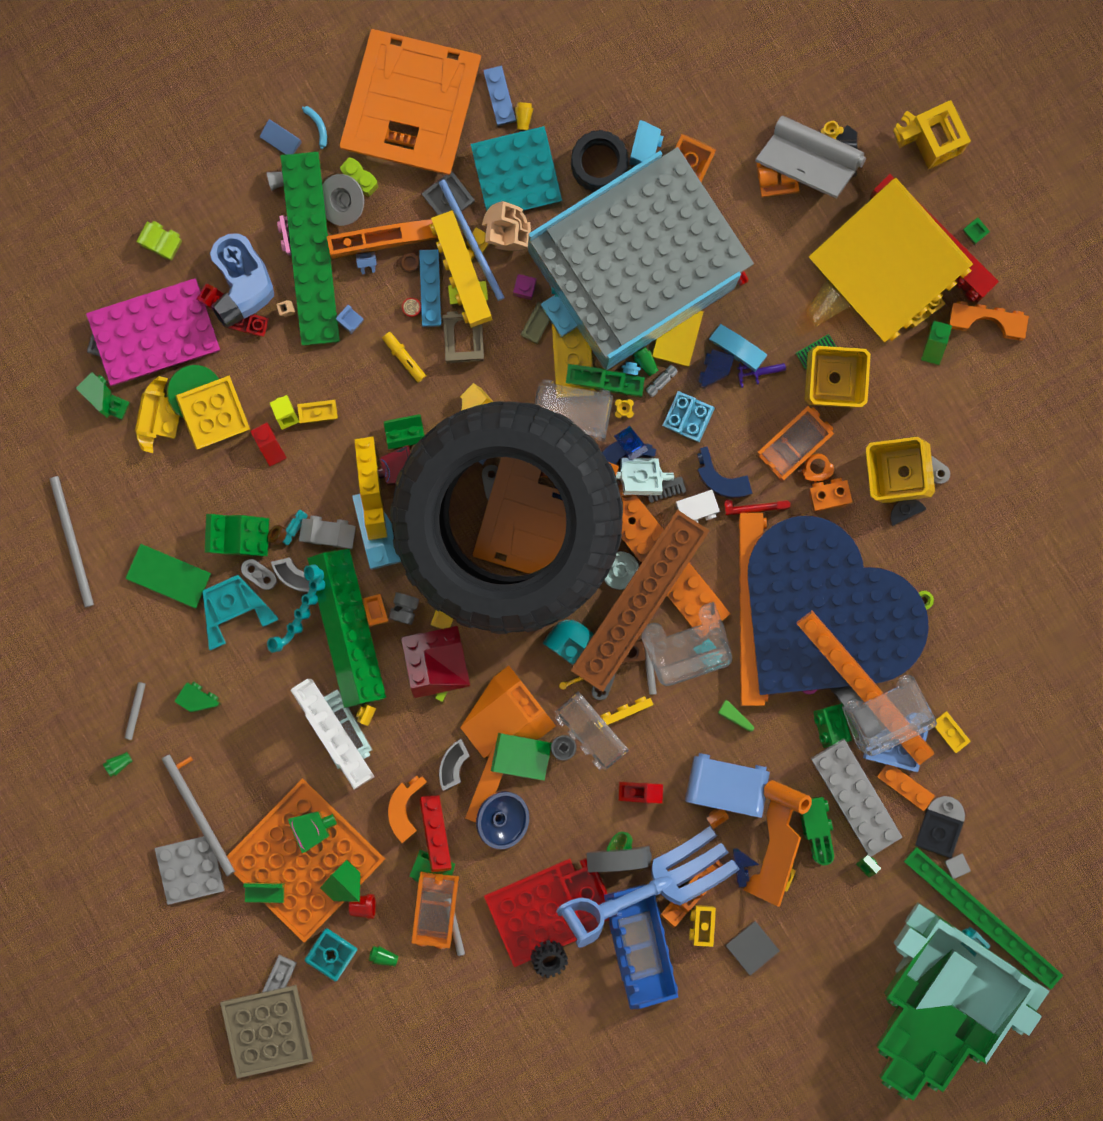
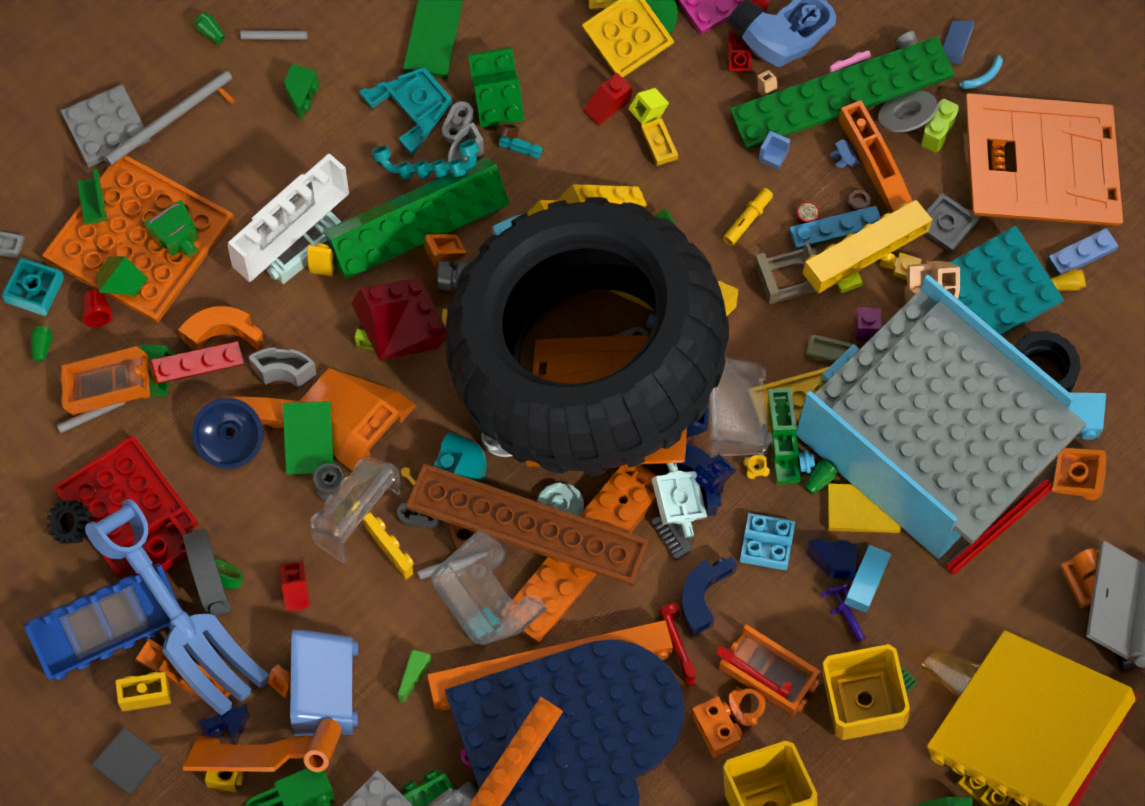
camera: 75 degrees right, 20 degrees down
(327, 533) = (522, 179): light grey brick -> none
(471, 240) = (905, 253): medium blue piece -> none
(661, 381) = (802, 501): light grey axle -> none
(699, 506) = (660, 574): white brick -> none
(779, 472) = (740, 664): none -> red hinge

